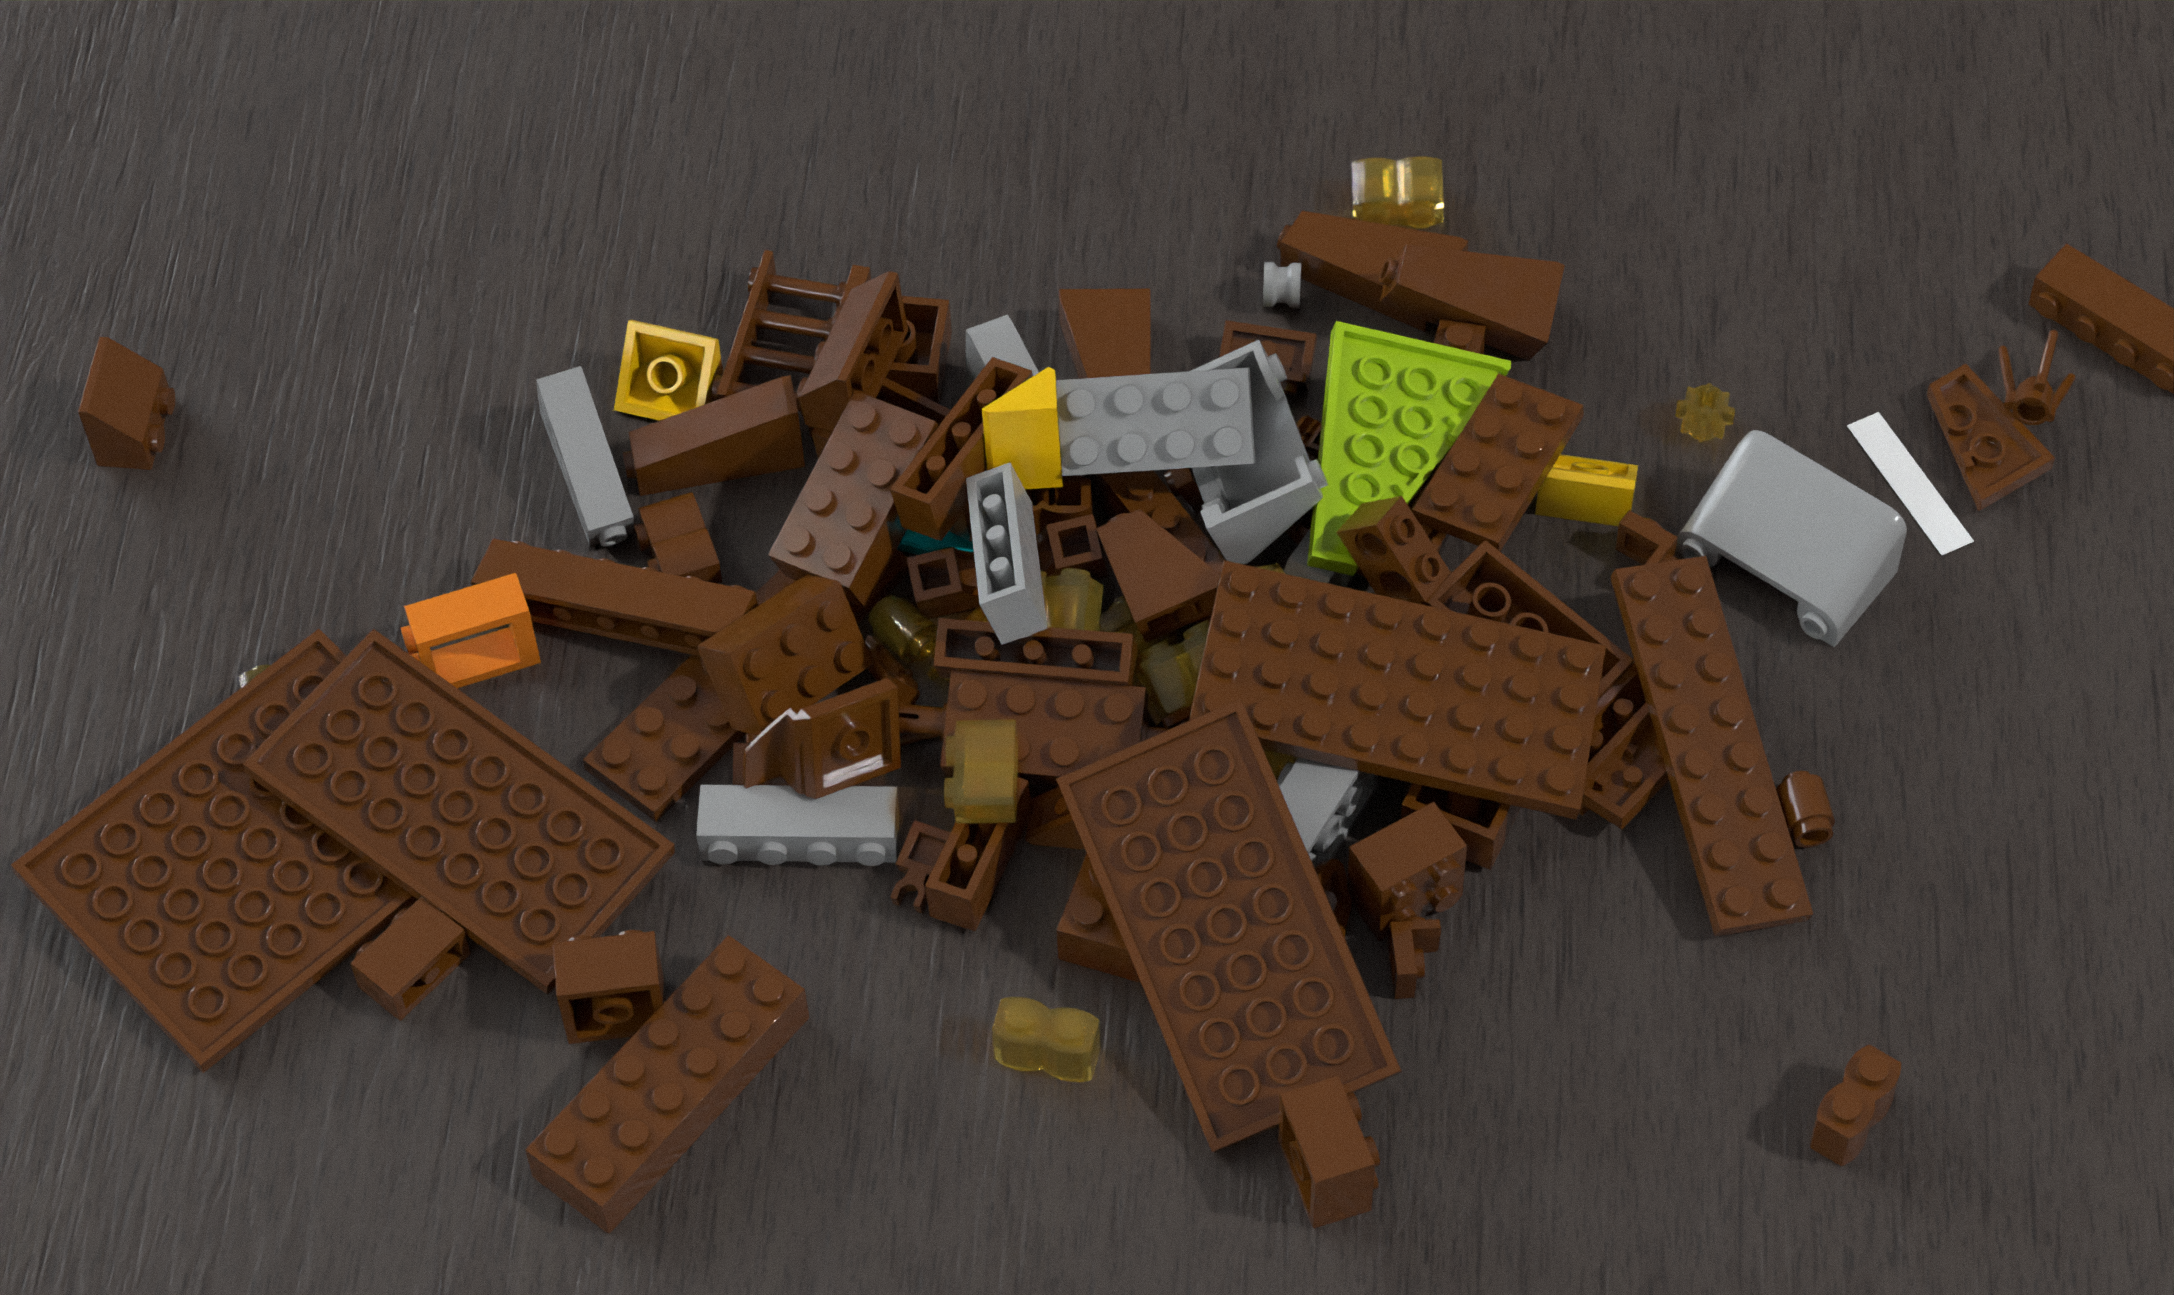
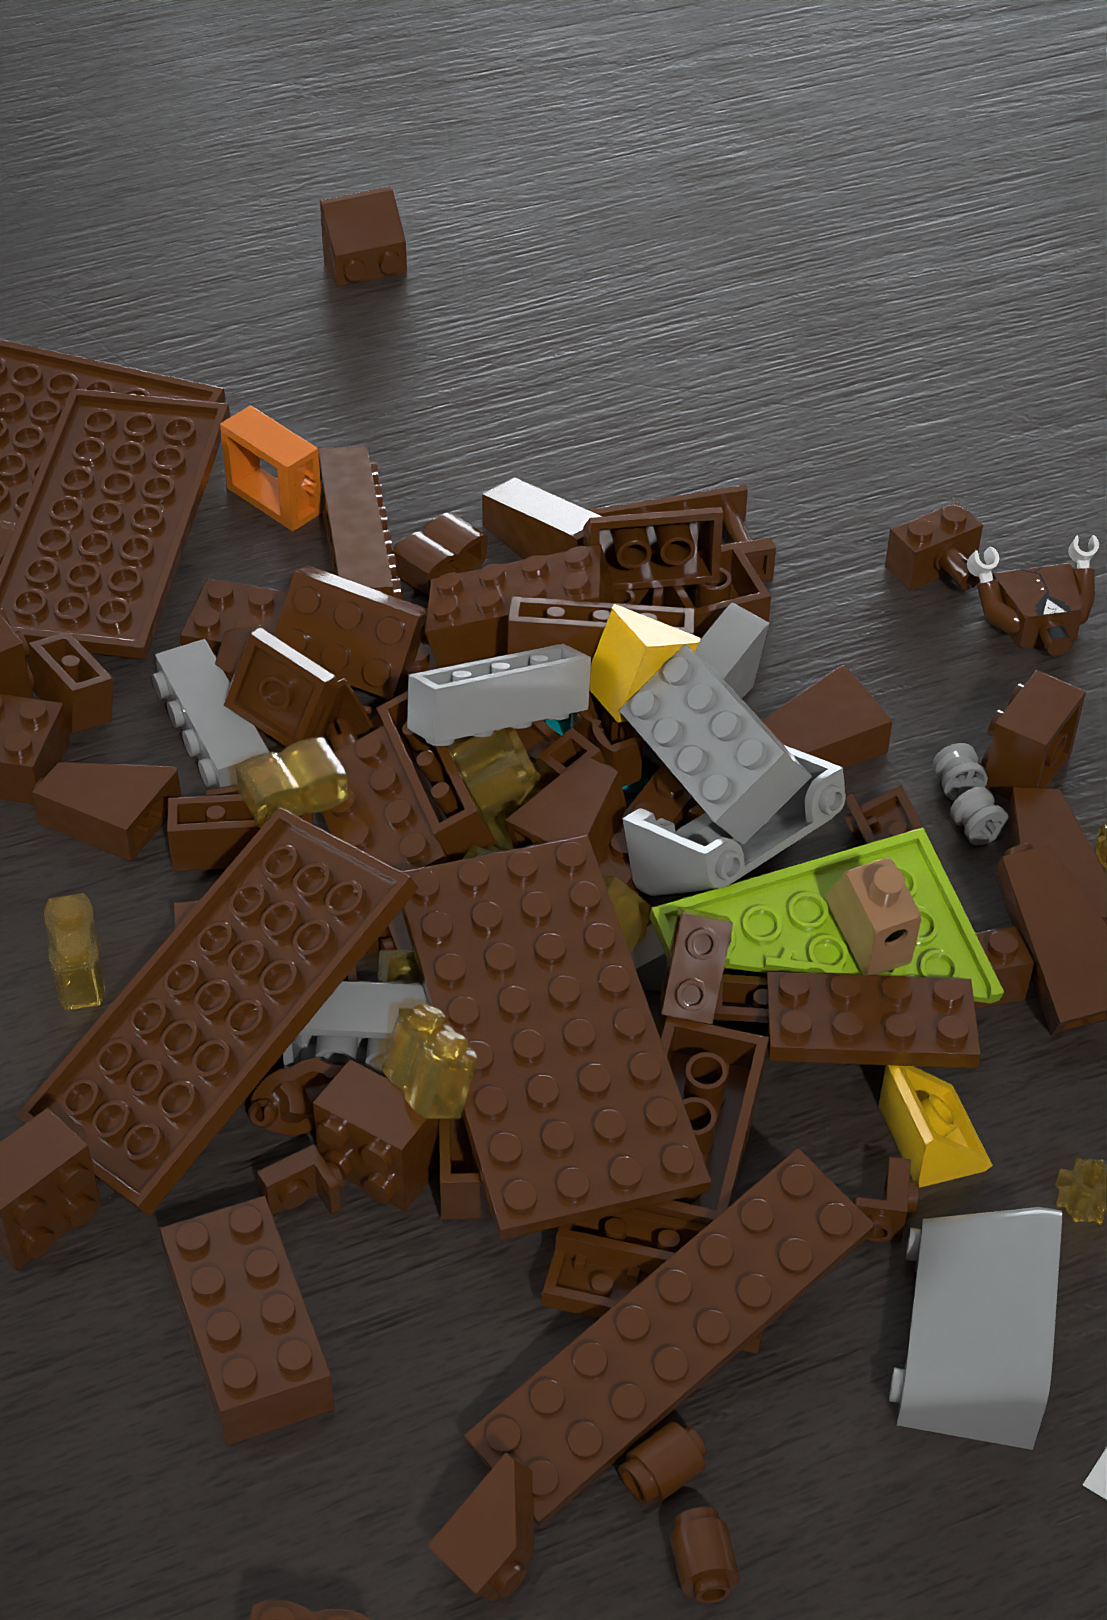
camera: 60 degrees right, 10 degrees down
(584, 457) = (495, 450): light grey slope -> none
(665, 371) = (594, 476): yellow slope -> none
(685, 919) = (71, 676): none -> reddish brown brick
(864, 953) = (106, 803): none -> reddish brown slope
(937, 144) = (935, 547): none -> reddish brown brick
(1056, 103) = (1039, 602): none -> reddish brown torso
(1222, 272) = (958, 770): none -> light grey wheel
(1233, 198) = (1032, 734): none -> reddish brown brick
(1400, 783) = (430, 1062): none -> clear yellow brick
(1418, 398) = (873, 907): none -> medium nougat torso
(1531, 1042) = (247, 1320): none -> reddish brown brick
(1819, 941) = (492, 1532): none -> reddish brown slope
(1896, 817) = (704, 1555): none -> reddish brown brick

